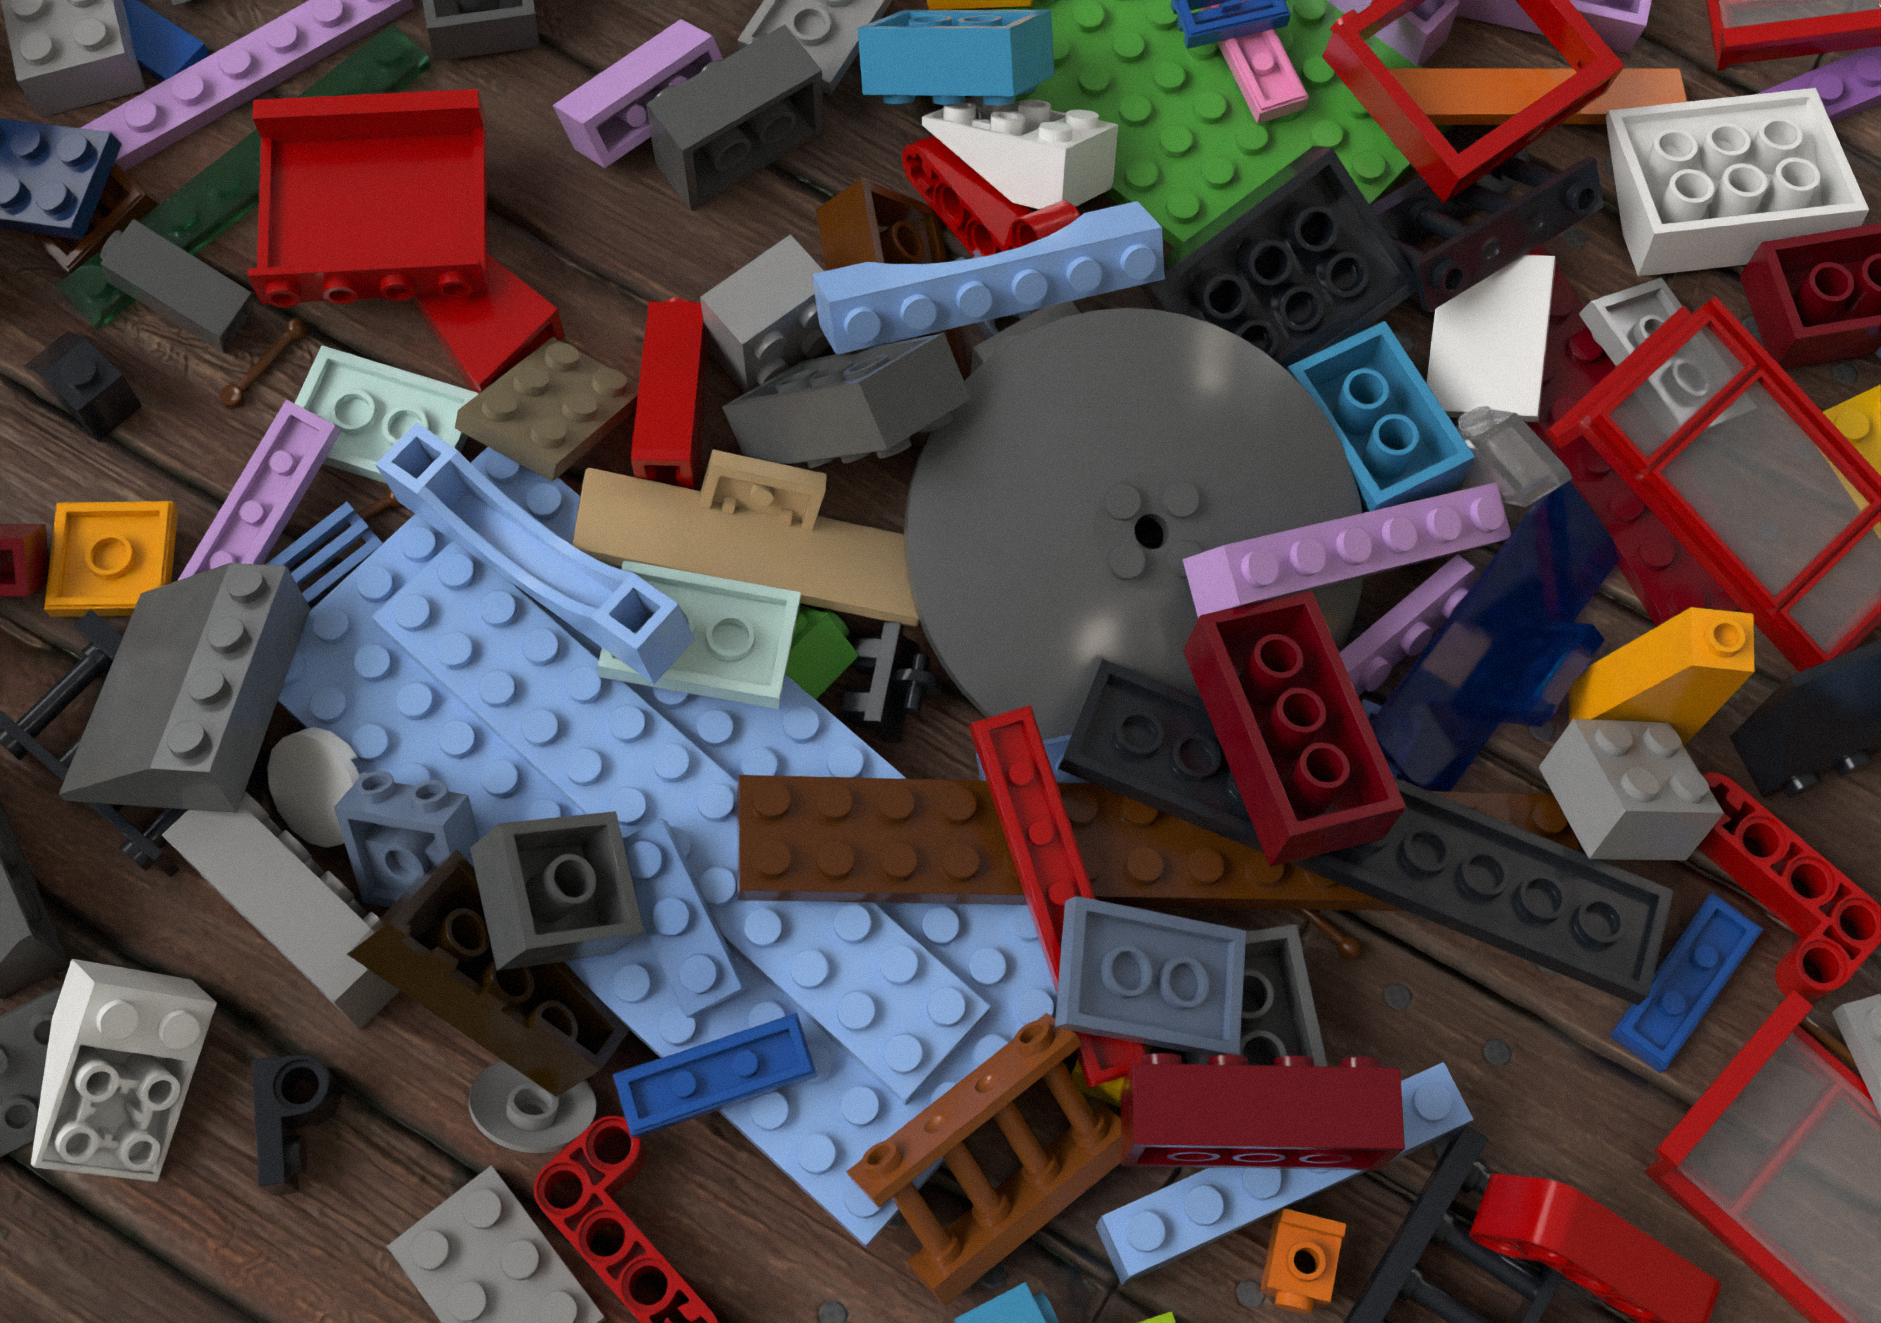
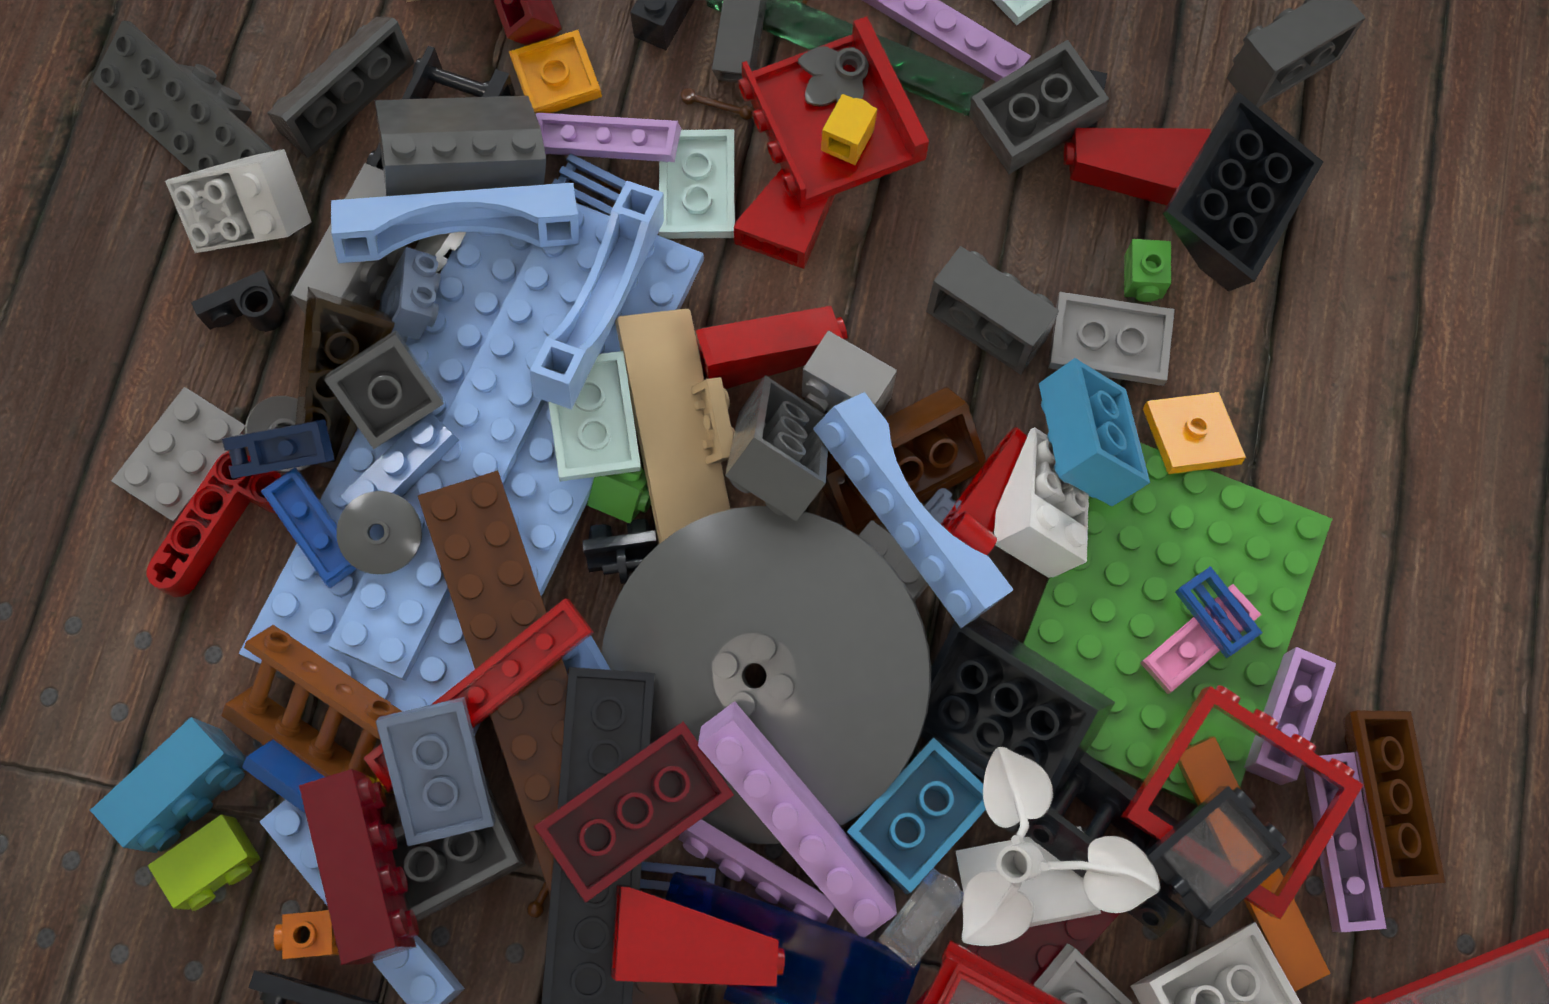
camera: 75 degrees right, 5 degrees up
(288, 831) = (378, 225): none -> light blue arch
(321, 184) = (829, 77): none -> dark grey plate
(413, 178) = (848, 129): none -> yellow brick
(549, 408) = (732, 273): dark tan plate -> none
(577, 1089) = (279, 448): none -> dark blue plate
(610, 110) = (999, 242): lavender brick -> none
(752, 991) = (400, 538): none -> dark grey dish
(1079, 1213) = (281, 771): none -> blue tile
(1394, 285) = (993, 908): none -> white plant
(1473, 740) = (681, 945): none -> red slope
(1541, 93) = (1218, 855): none -> window

